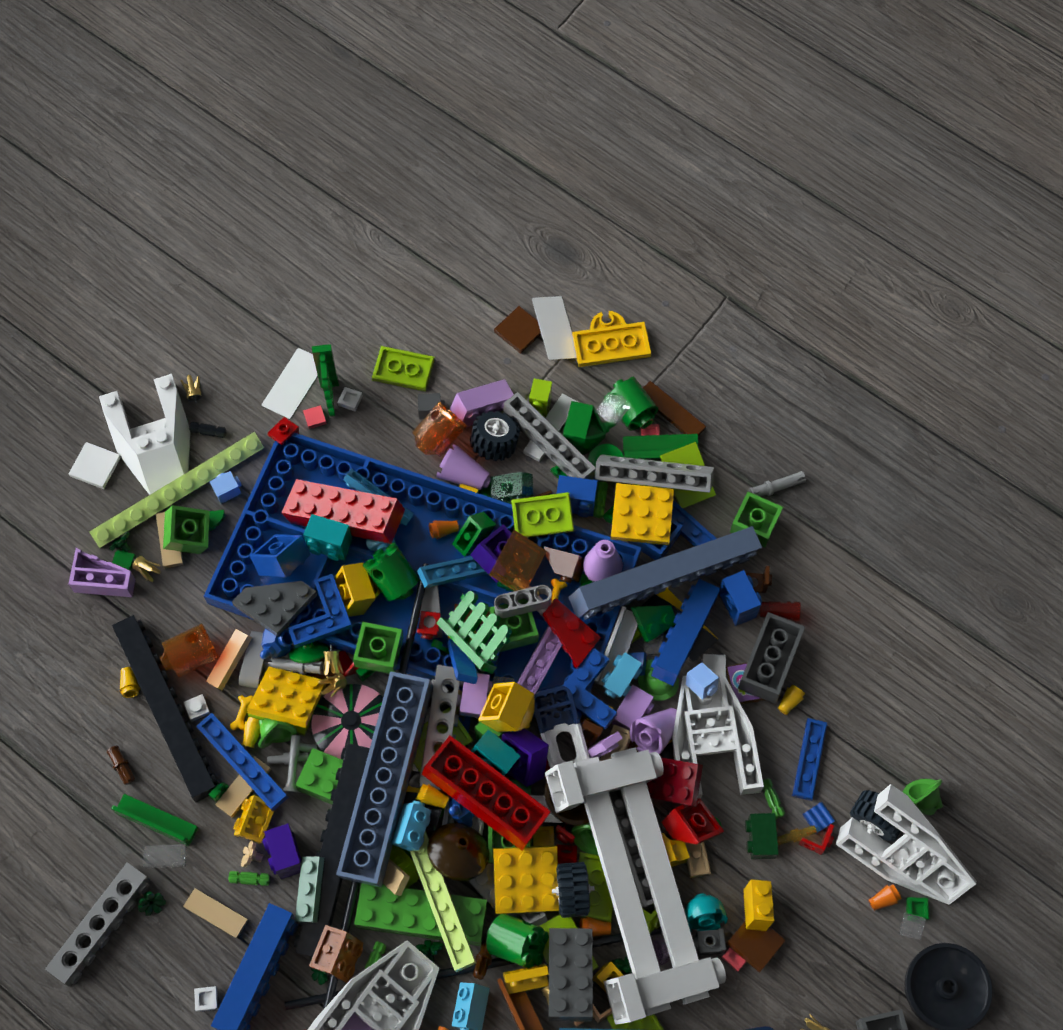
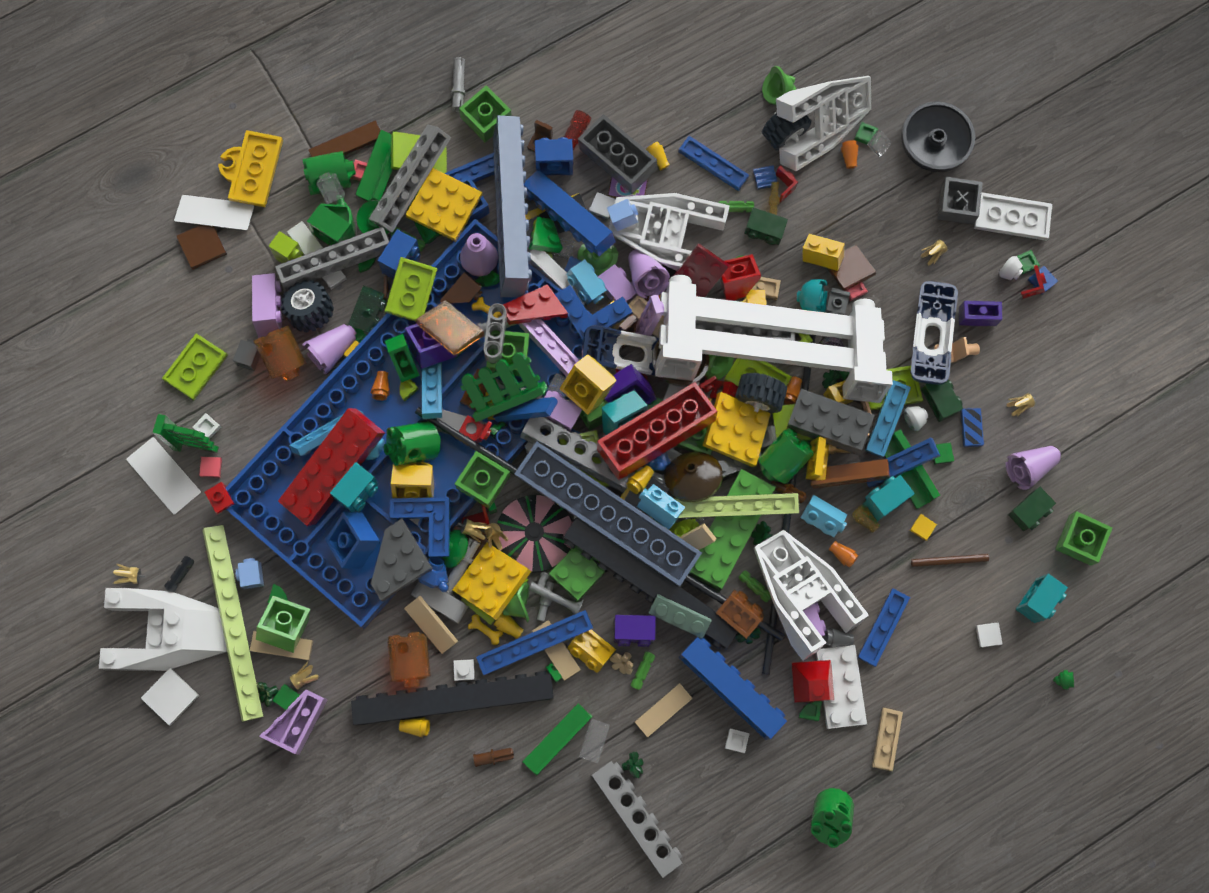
camera: 75 degrees left, 10 degrees up
(448, 553) = (407, 389): none -> lime tile

